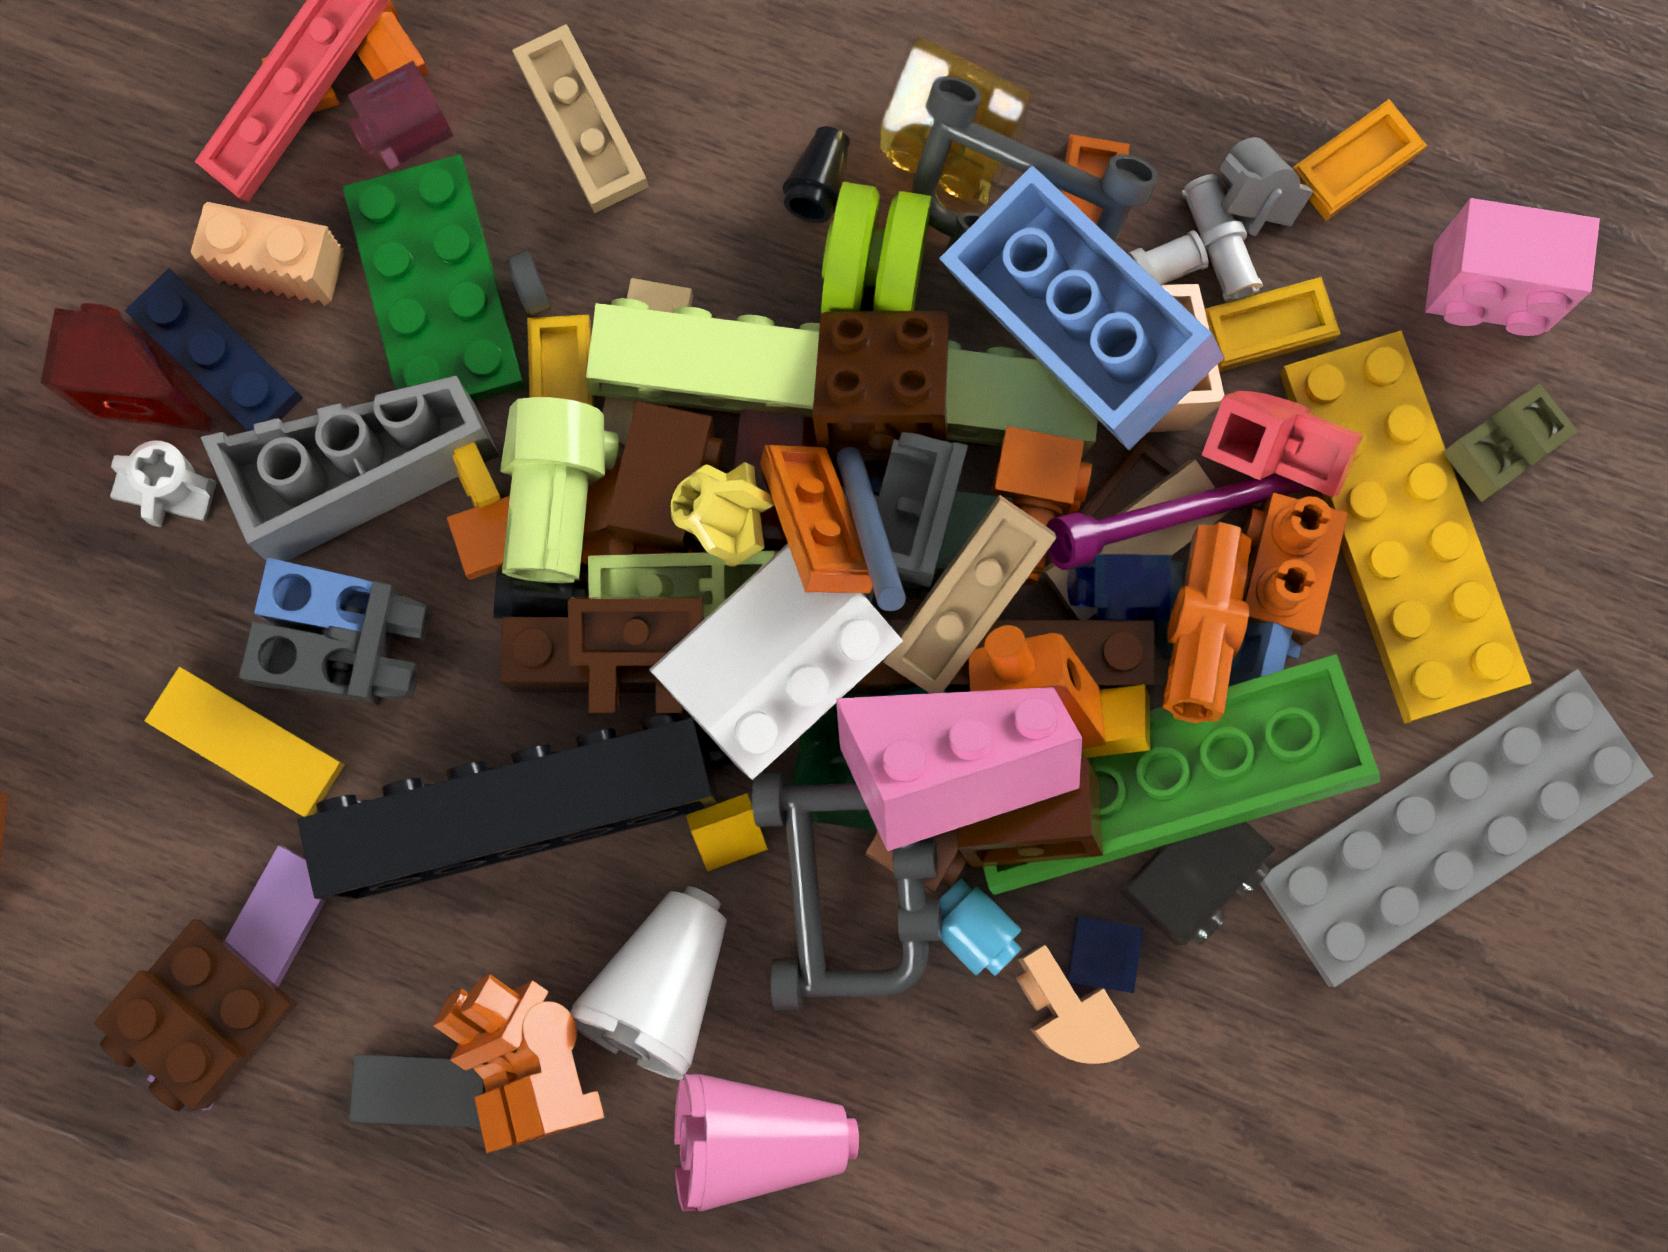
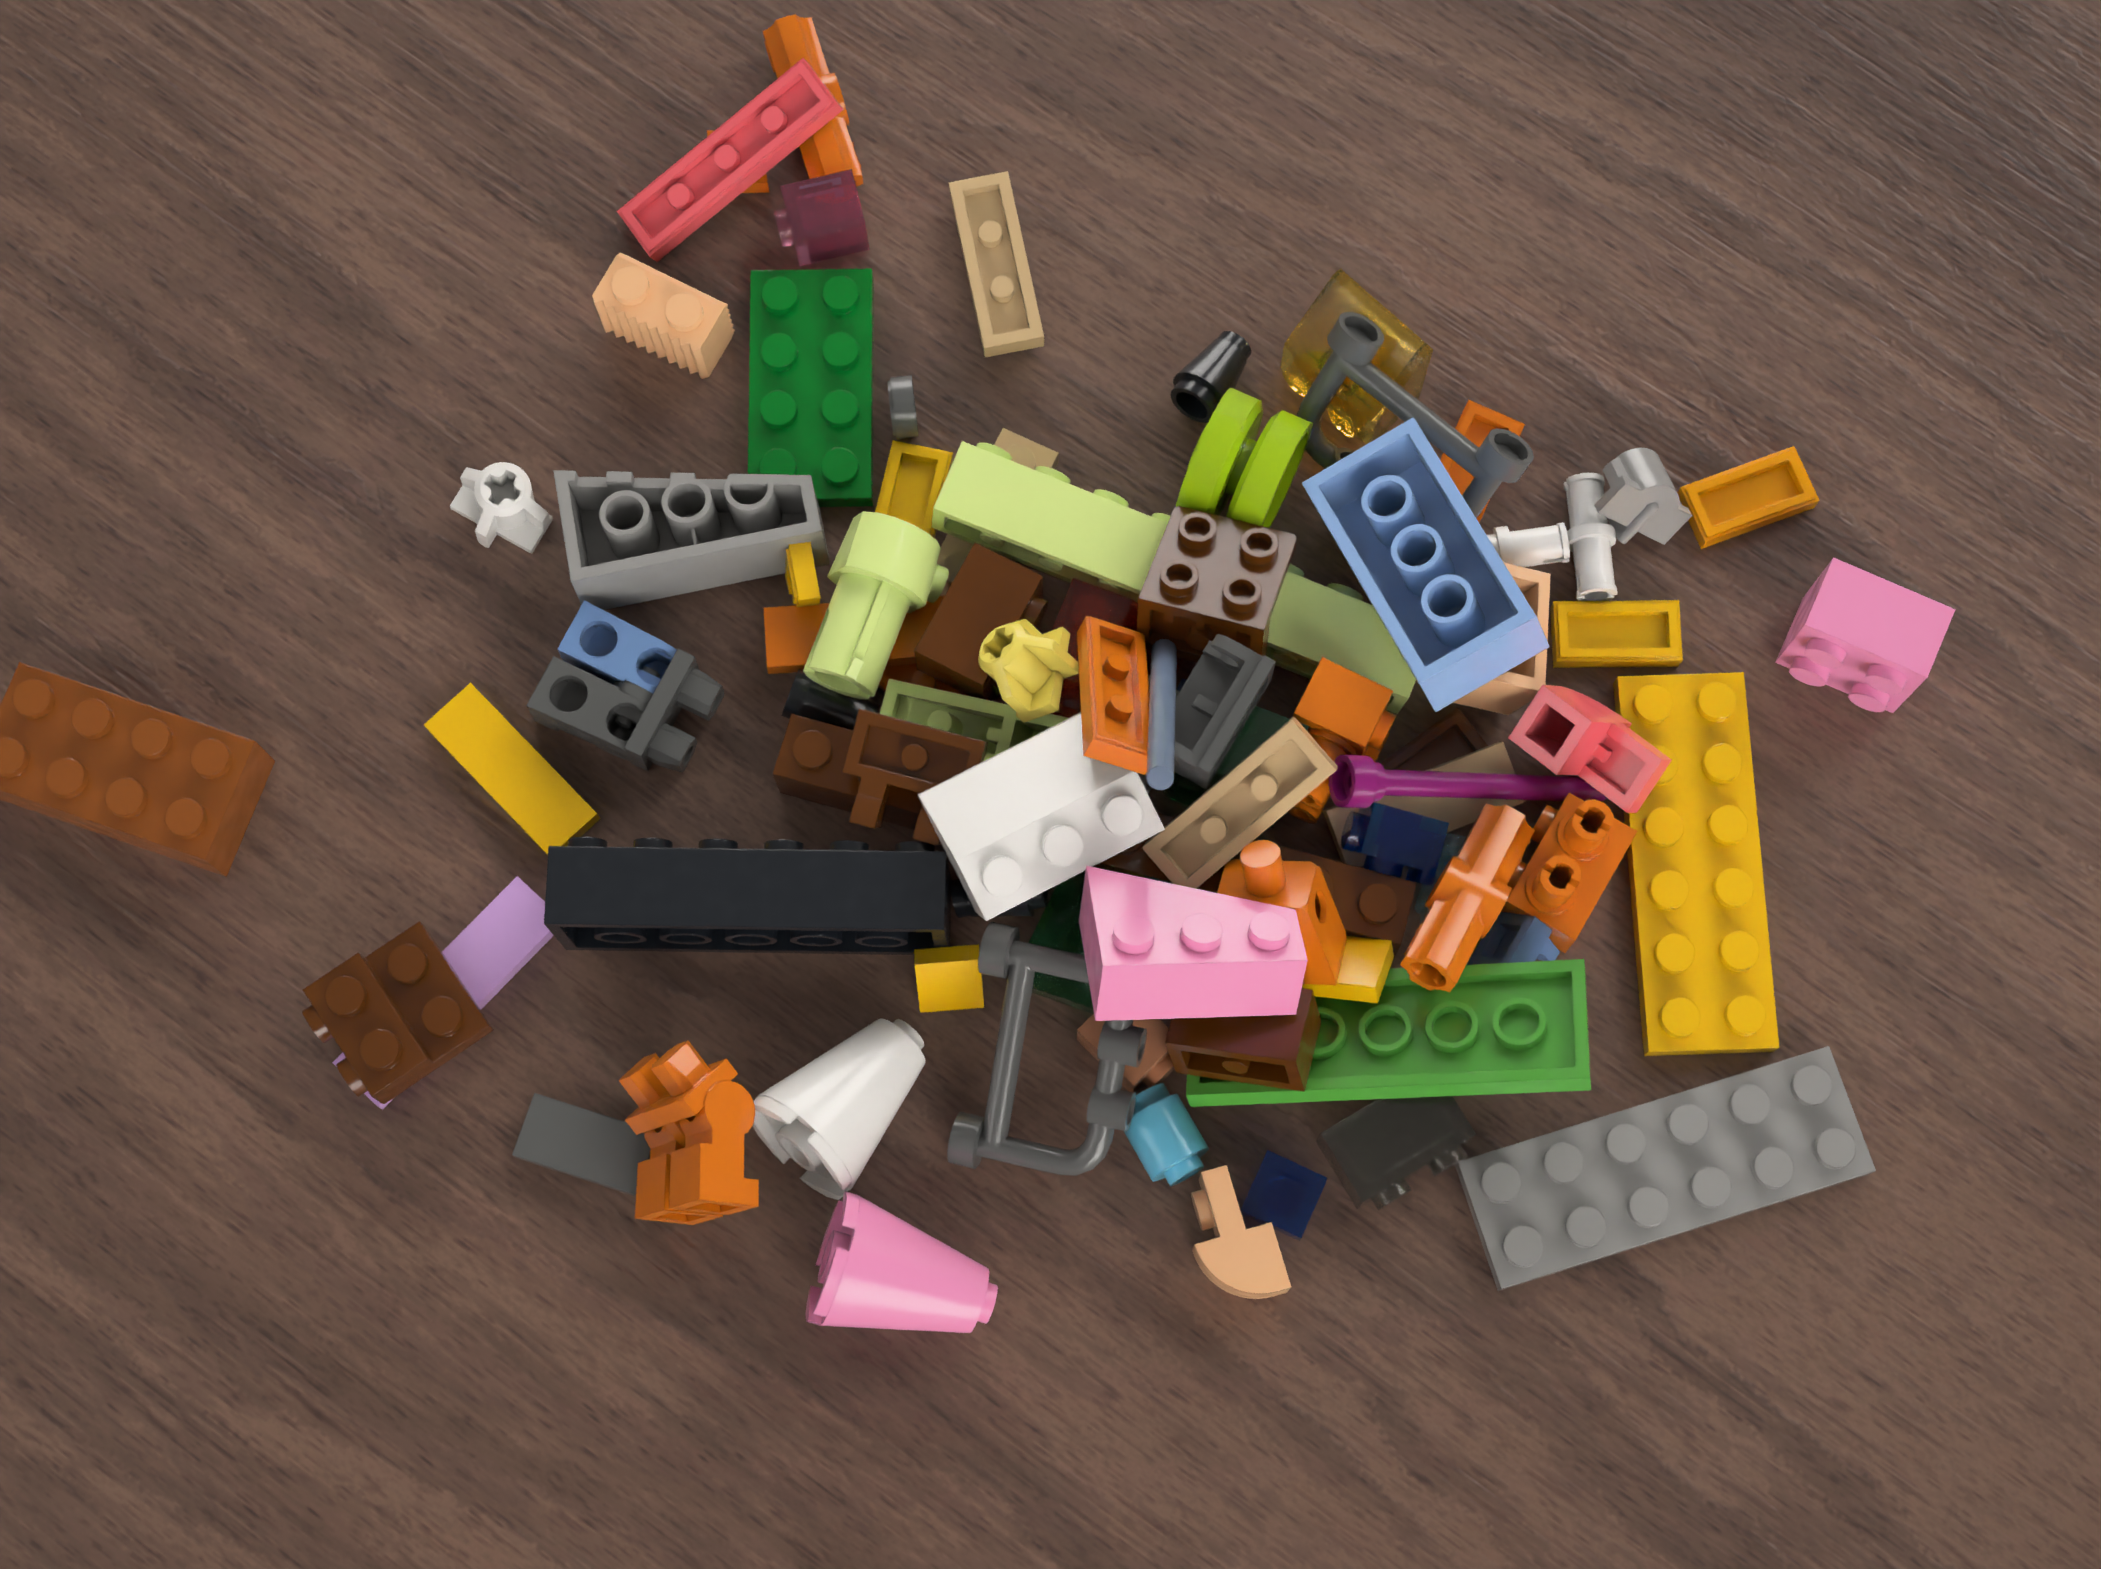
camera: 15 degrees right, 5 degrees down
(115, 372) = (489, 392): clear red slope -> none
(212, 352) = (583, 395): dark blue plate -> none
(1510, 442) = (1823, 809): olive slope -> none

